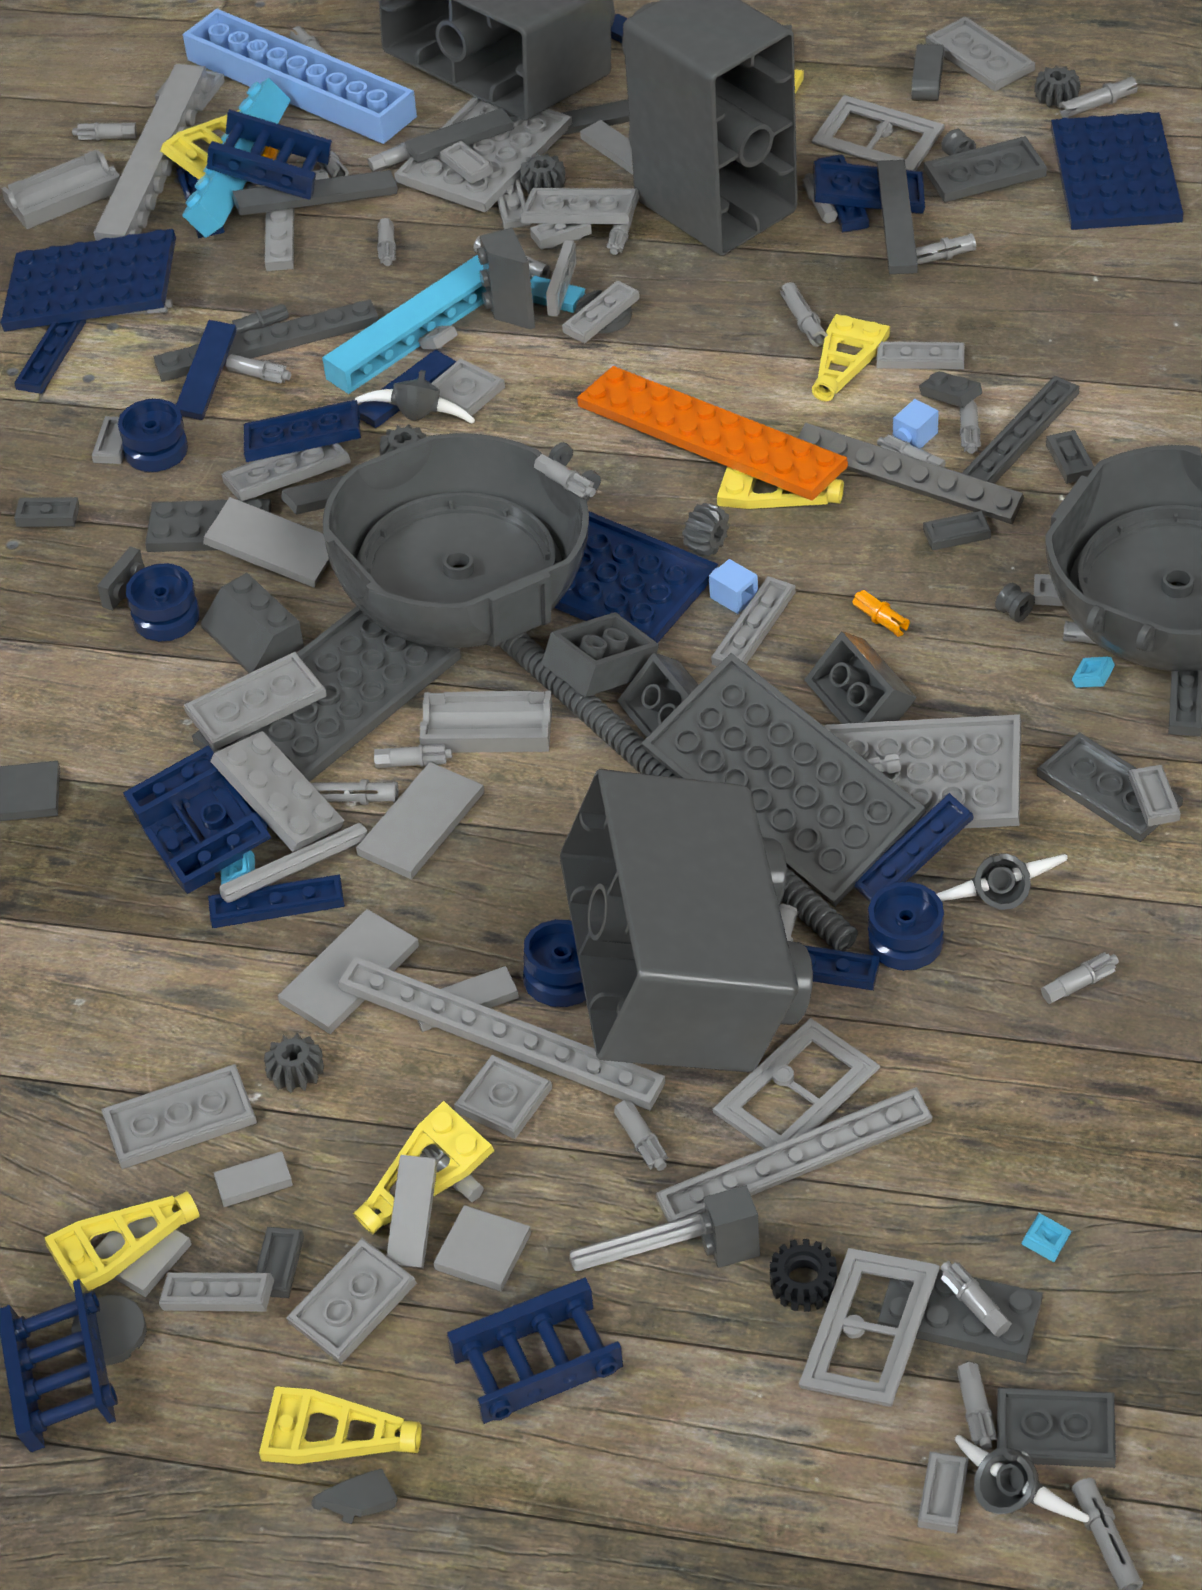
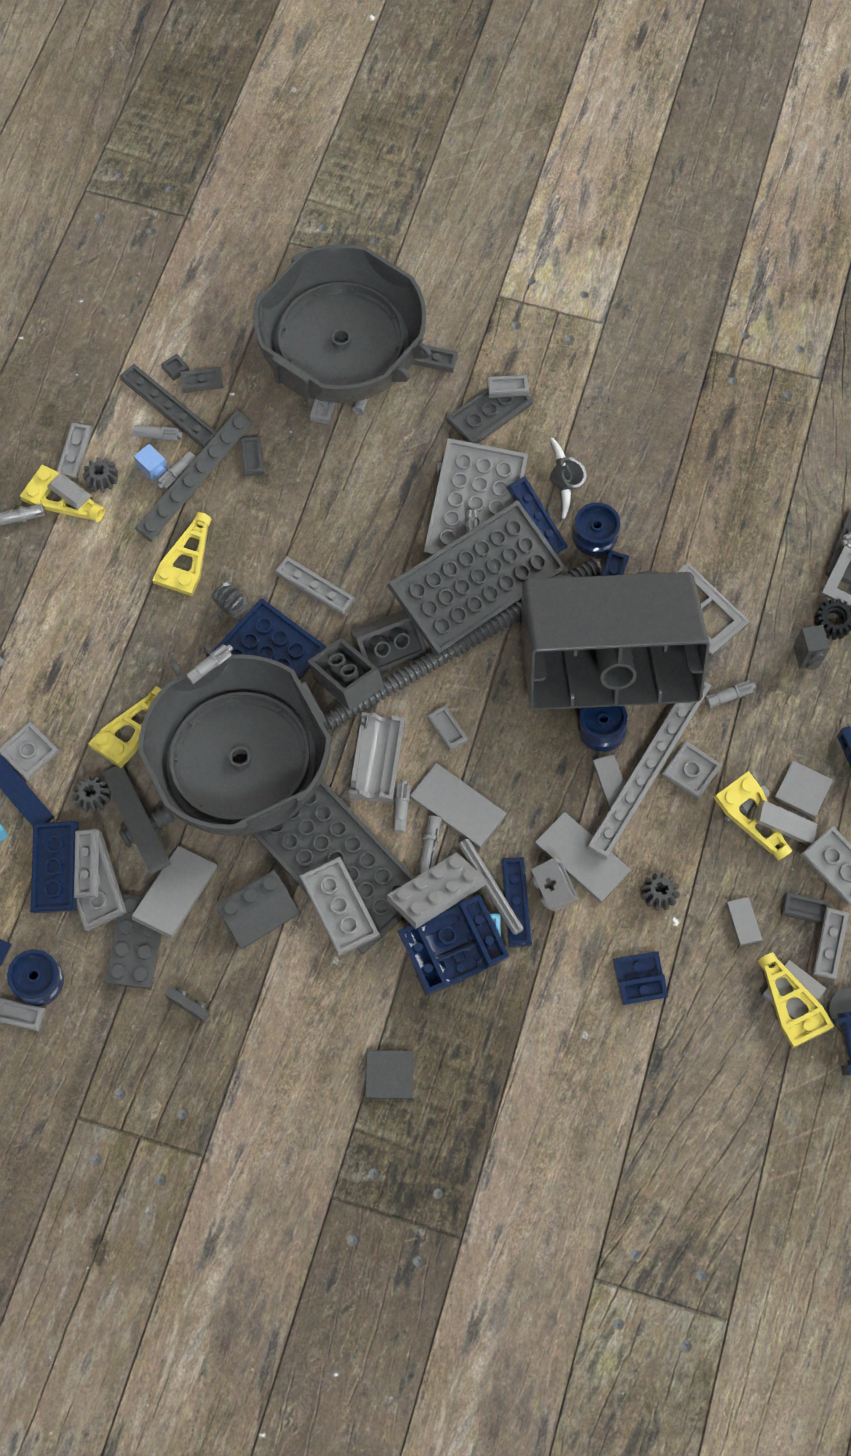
camera: 90 degrees left, 20 degrees up
(47, 512) = (96, 1064): dark grey plate -> none
(161, 1054) = (640, 977): none -> dark blue slope
(162, 602) = (228, 958): dark blue wheel -> none
(178, 1116) = (690, 968): light grey tile -> none
(297, 931) = (564, 891): none -> light grey brick
(302, 451) = (86, 864): none -> light grey tile
(416, 399) = (40, 782): dark grey helmet -> none
(543, 795) = (447, 728): none -> light grey tile
(636, 1242) = (802, 693): light grey axle -> none
(713, 432) = (126, 589): orange plate -> none
(733, 586) = (282, 592): light blue brick -> none
(800, 1153) = (752, 615): light grey tile -> none
(850, 353) = (69, 491): none -> light grey tile
(858, 683) = (389, 529): dark grey slope -> none
(880, 612) = (322, 509): light orange axle -> none
(884, 380) = (100, 475): none -> dark grey gear
(950, 389) = (119, 437): dark grey plate -> none
(1015, 602) = (331, 432): dark grey wheel -> none
(1046, 1237) = (815, 496): medium azure tile -> none
(1080, 977) = (636, 449): light grey piece -> none
(1089, 430) = (174, 367): none -> dark grey tile
(1093, 672) = (398, 401): medium azure tile -> none

